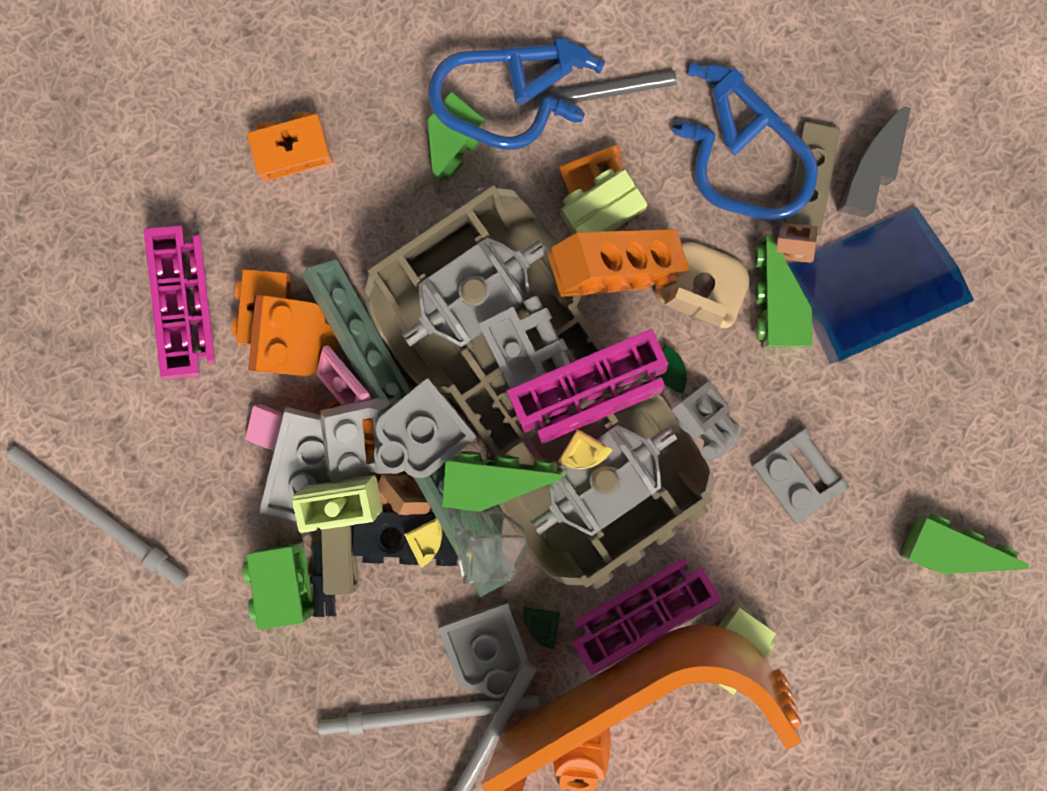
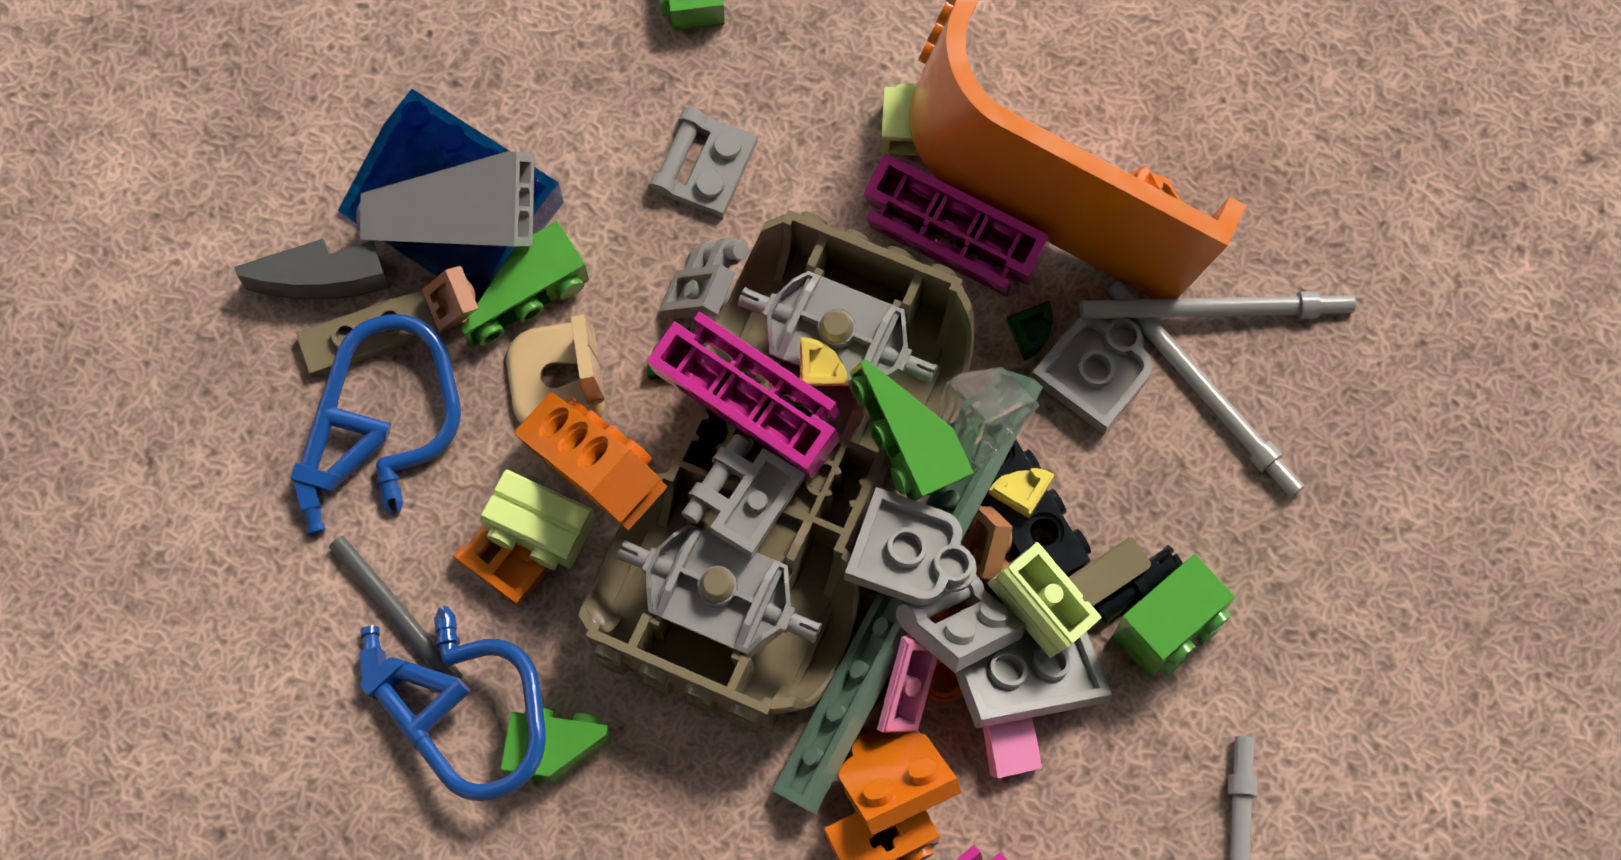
camera: 120 degrees left, 15 degrees down
(859, 280) = (464, 204): none -> light grey slope

